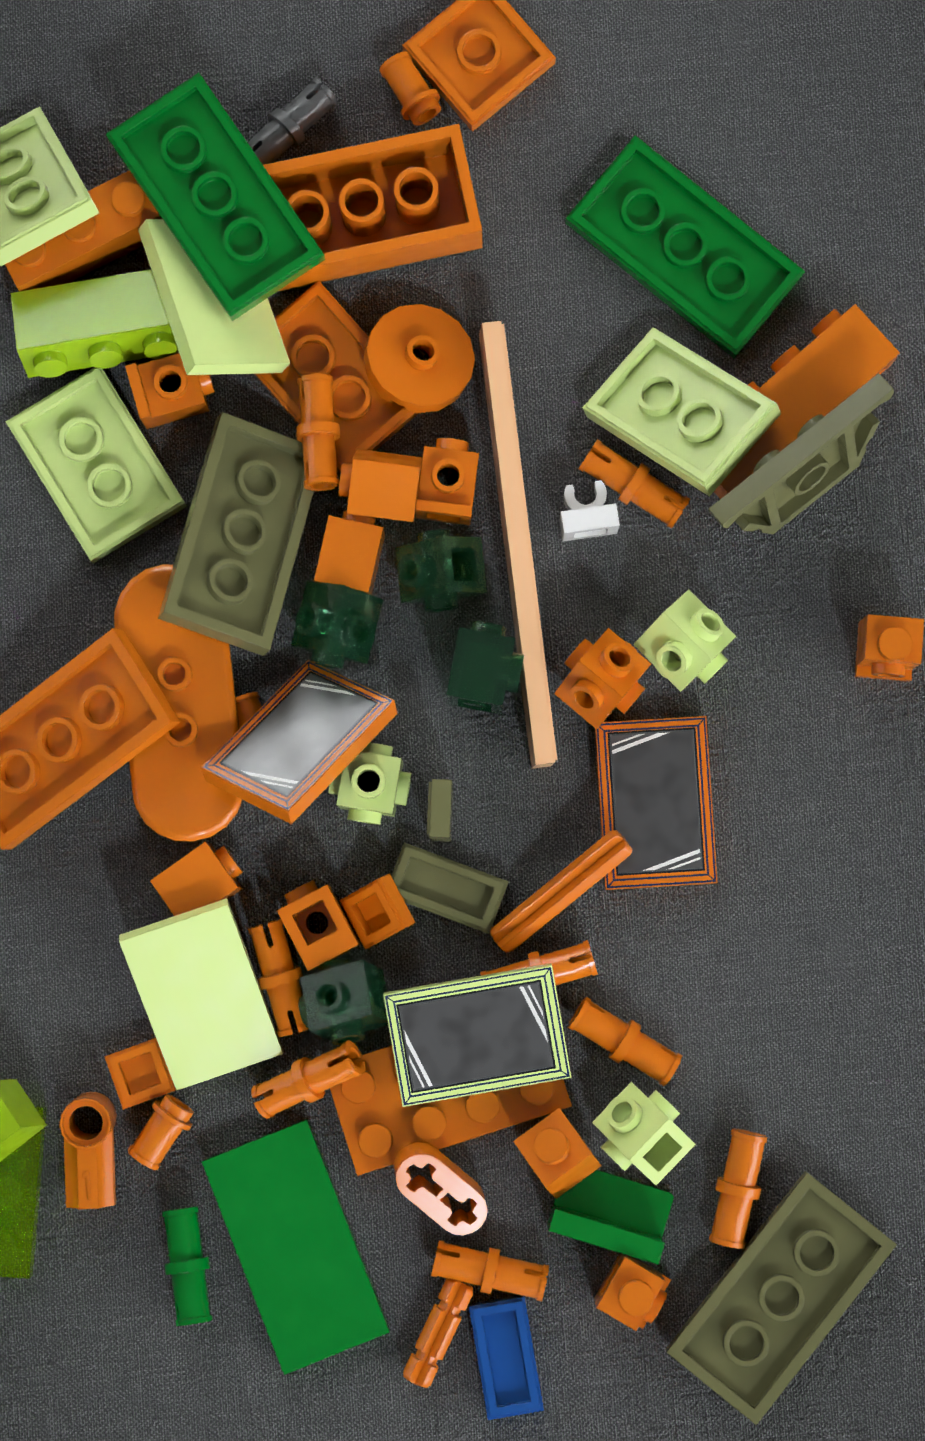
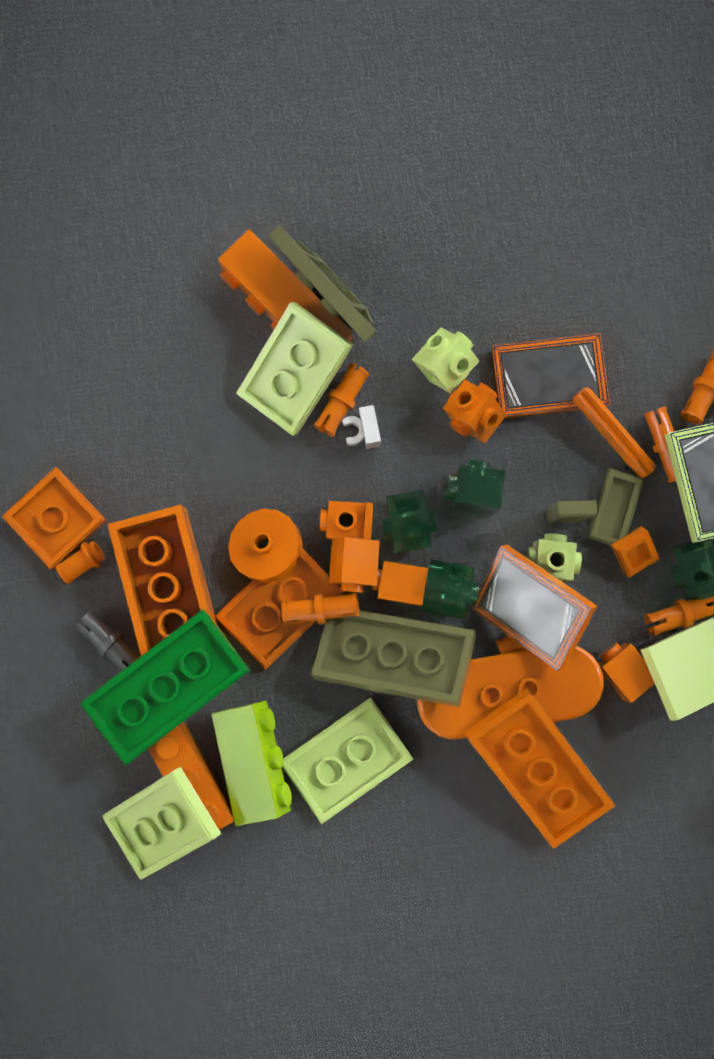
camera: 95 degrees left, 0 degrees up
(162, 407) = (293, 727): orange brick -> none
(200, 326) = (255, 691): yellowish green tile -> none
(321, 947) = (661, 586): orange brick -> none
(517, 544) = (384, 473): light nougat tile -> none
(684, 247) = (180, 376): green tile -> none
(888, 647) = (441, 230): orange brick -> none

